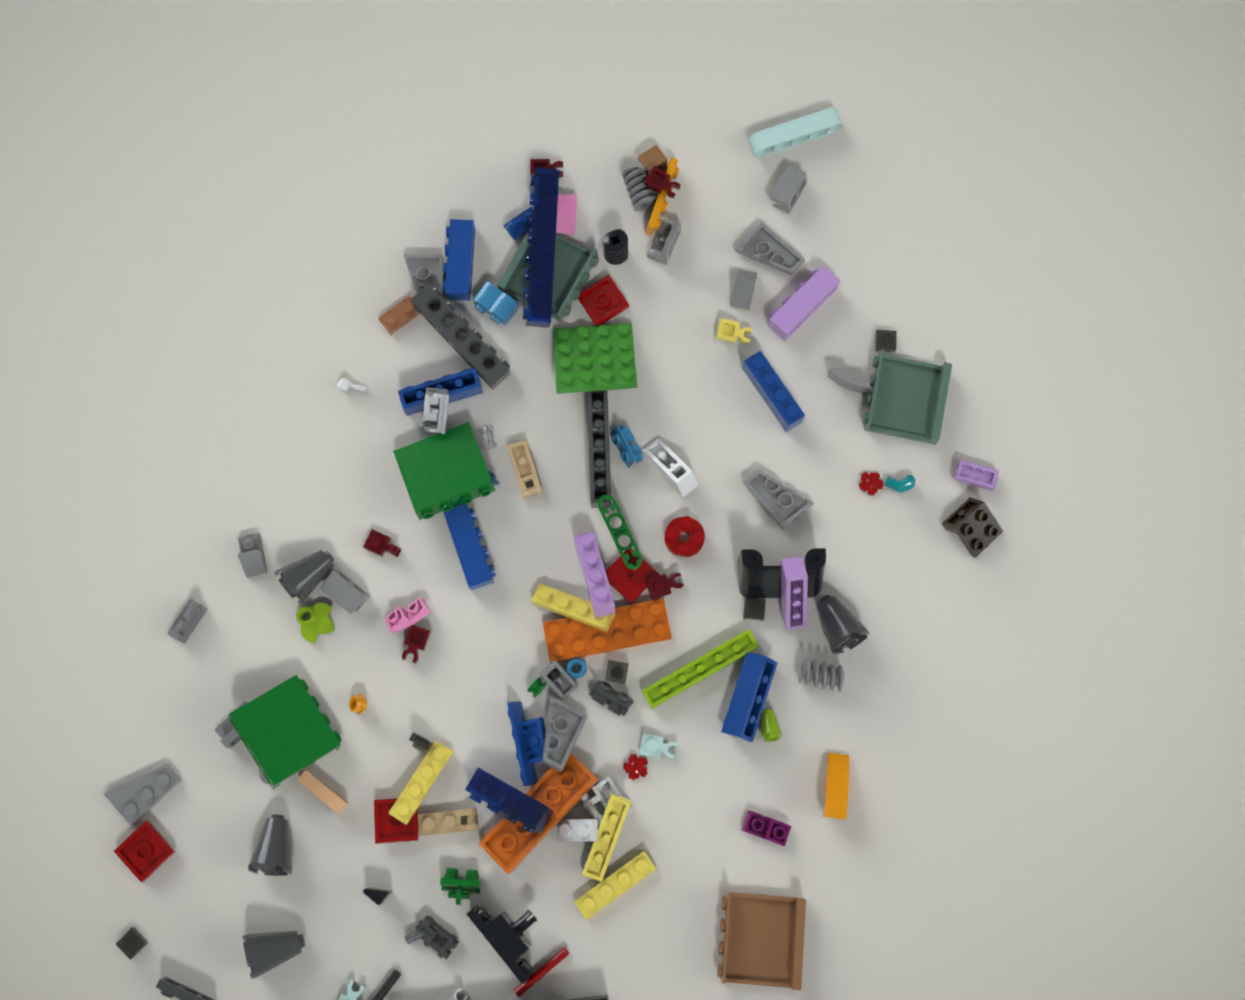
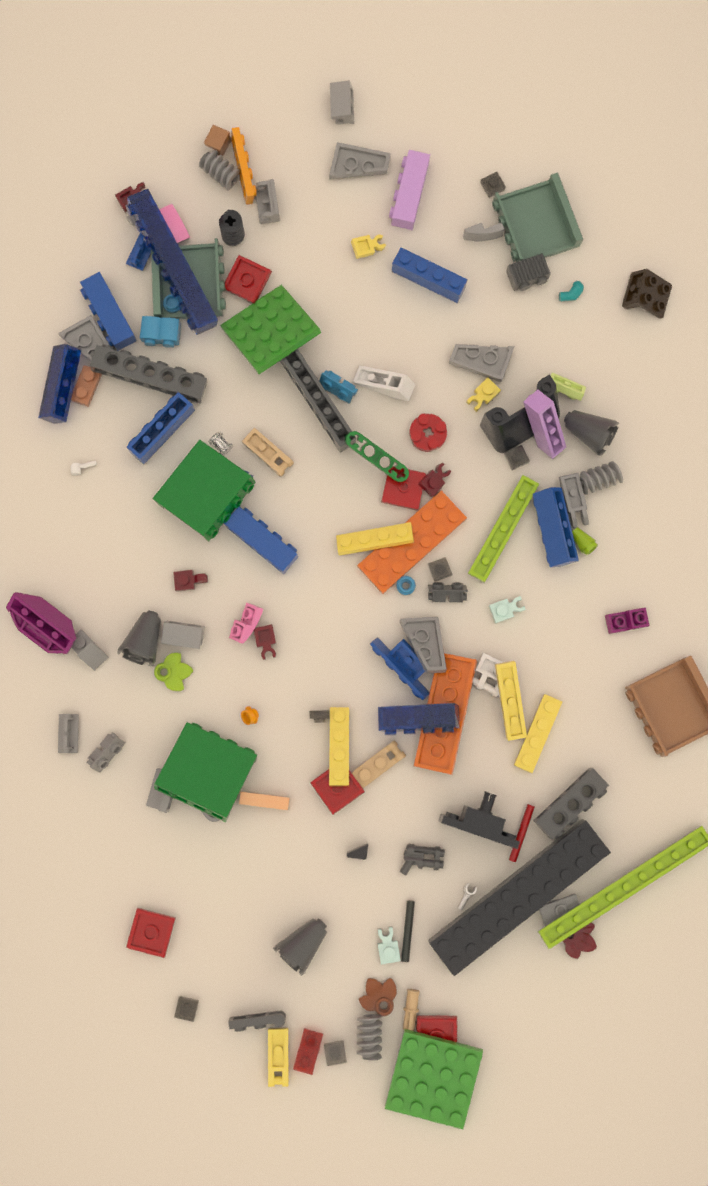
camera: 35 degrees left, 5 degrees up
(142, 794) = (119, 891): light grey wing -> none
(200, 661) = (100, 759): none -> light grey hinge
(226, 506) = (41, 623): none -> magenta wedge
(273, 850) = (254, 867): dark grey cone -> none
(376, 300) = (59, 383): none -> clear blue brick
(435, 410) = (167, 444): light grey hinge -> none
(460, 888) = (420, 808): green hips -> none
(519, 284) = (171, 304): none -> dark azure plate
(537, 687) = (384, 618): green bush -> none
(558, 680) = (398, 602): light grey slope -> none
(570, 973) = (589, 778): none -> dark grey brick
(578, 830) = (485, 708): white plate -> none
(594, 574) = (377, 502): lavender brick -> none
(636, 766) = (498, 634): red plant -> none
(659, 181) = (234, 153): dark red plate -> none
(743, 289) = (355, 205): light grey slope -> none
(762, 531) = (485, 393): none -> light yellow plate
(785, 679) = (574, 498): none -> light grey hinge
(795, 132) = (319, 52): light aqua beam -> none
(836, 786) = (662, 557): light orange slope -> none
(841, 569) = (568, 387): none -> yellowish green plate
(869, 441) = (528, 272): none -> dark grey brick
(871, 483) = (548, 305): red plant -> none
(976, 475) = (626, 252): lavender plate -> none

